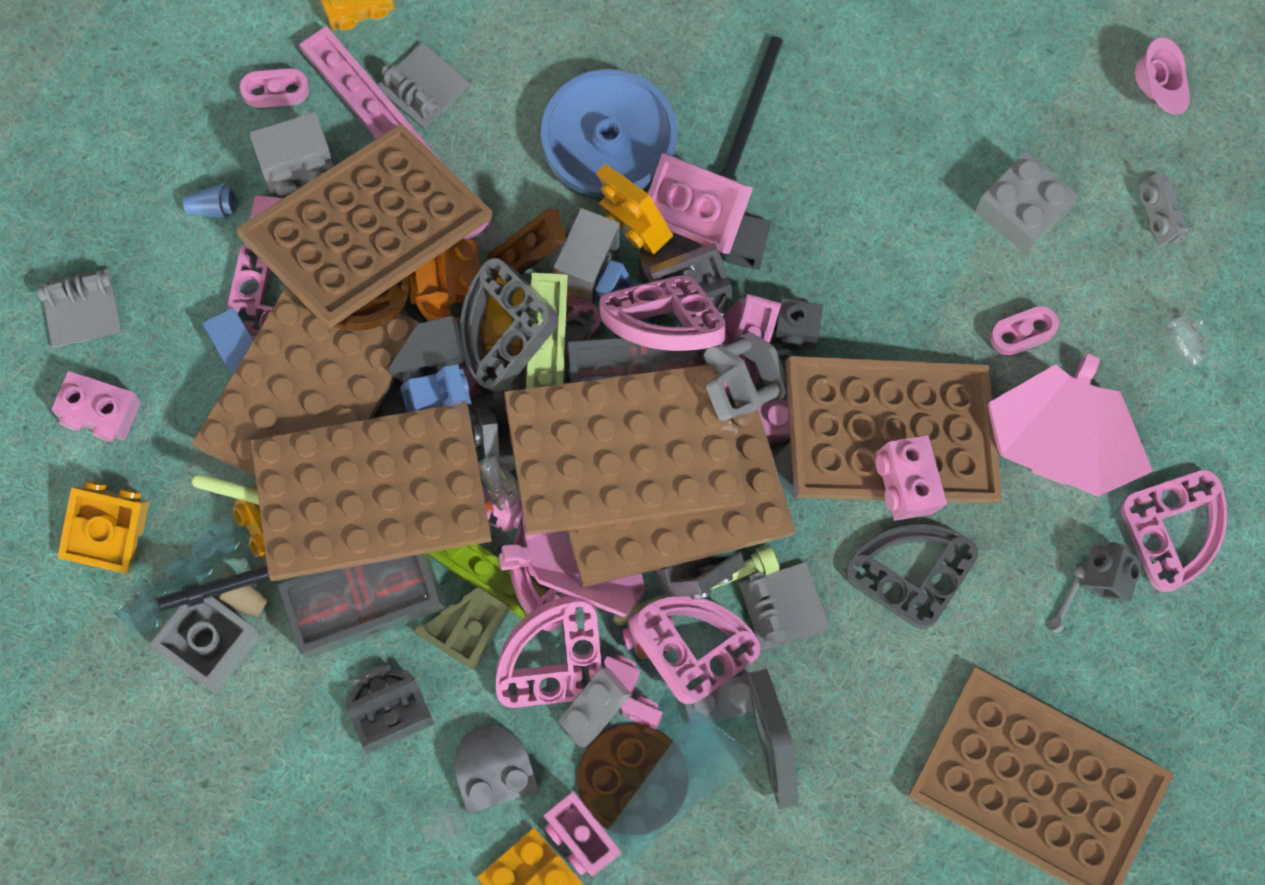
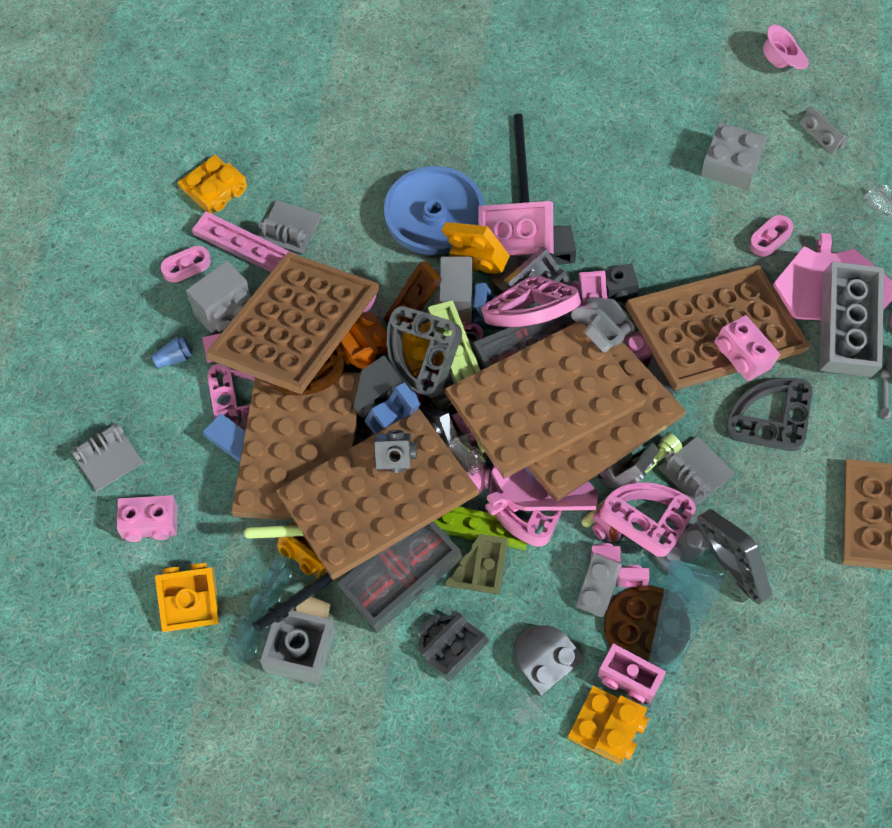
camera: 15 degrees left, 10 degrees down
(405, 451) = (394, 451): none -> brick
(567, 674) = (569, 570): bright pink beam -> none
(1067, 487) = (852, 319): none -> light grey brick

